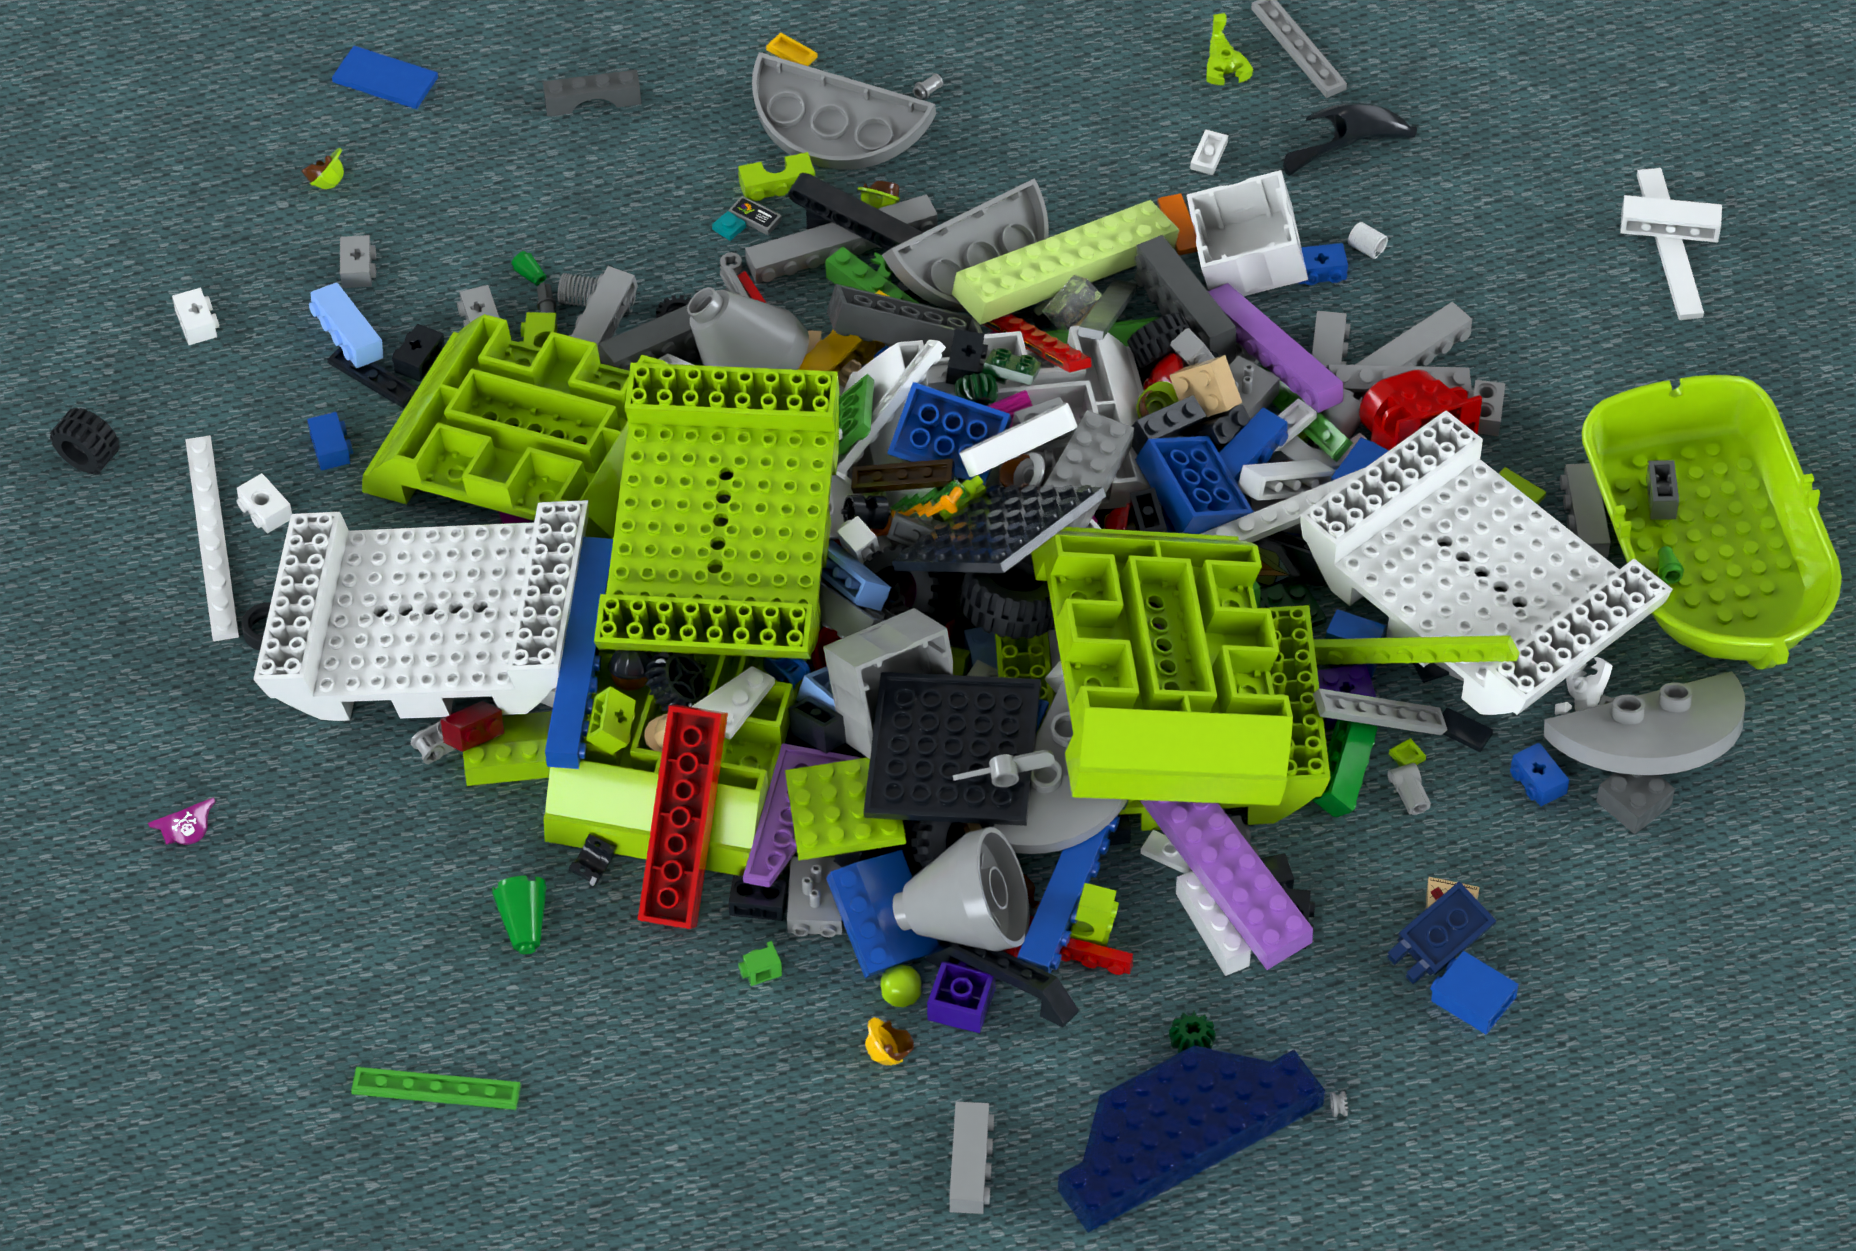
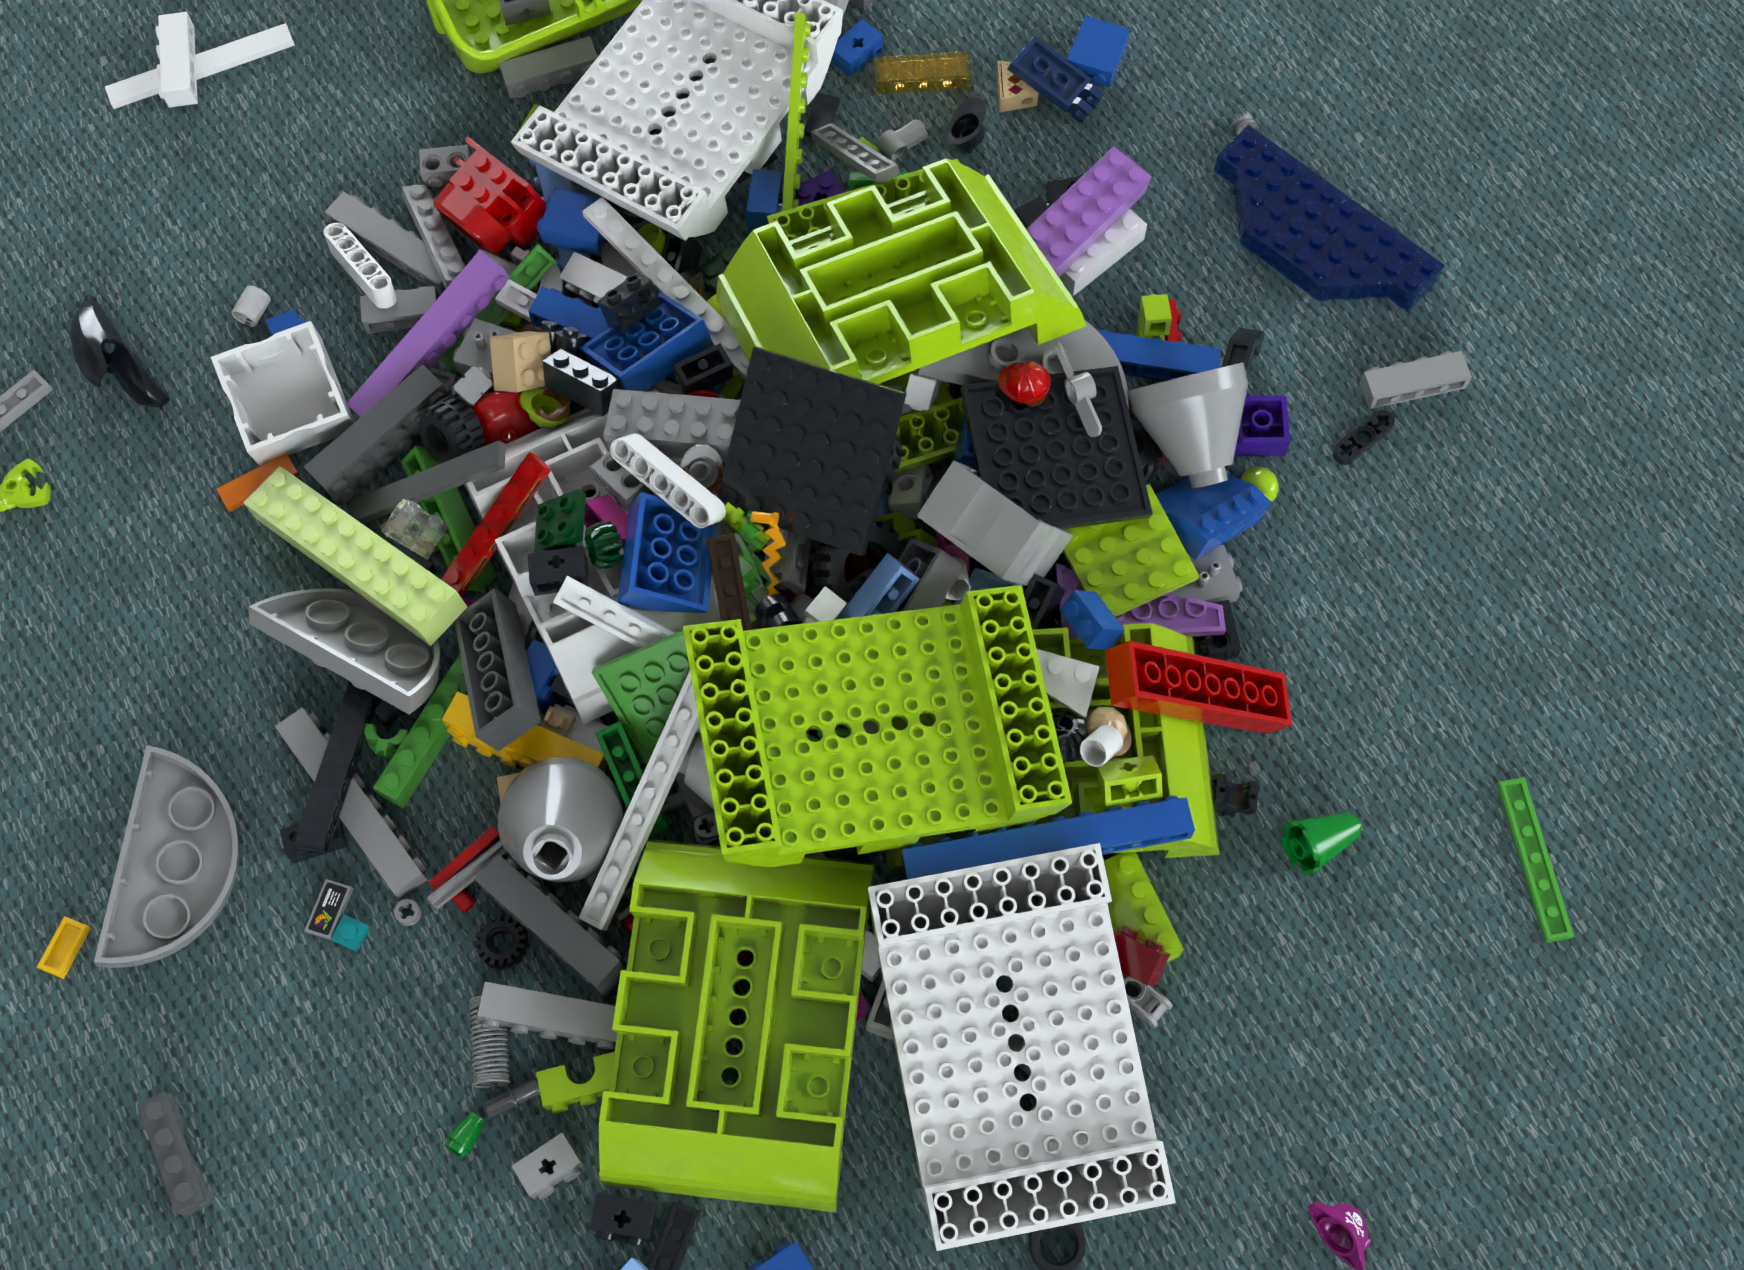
camera: 105 degrees left, 15 degrees up
(649, 705) = (1092, 751): none -> white piece
(760, 184) = (283, 918): lime arch -> none
(761, 965) = (1288, 606): bright green brick -> none
(781, 749) = (1091, 620): none -> blue brick
(880, 194) = (281, 778): lime piece -> none
(887, 1043) = (1331, 472): piece -> none
(923, 1083) = (1367, 428): none -> black beam
(928, 86) = (105, 783): light grey pin -> none
(1023, 727) = (1025, 382): none -> red piece
(1192, 1031) = (1221, 243): dark green gear -> none
(1209, 152) = (152, 476): white plate -> none
(1238, 473) = (629, 302): none -> black brick
(1378, 316) = (360, 265): none -> white beam
(1403, 844) = (966, 125): none -> black piece
(1490, 825) = (922, 72): none -> clear yellow brick

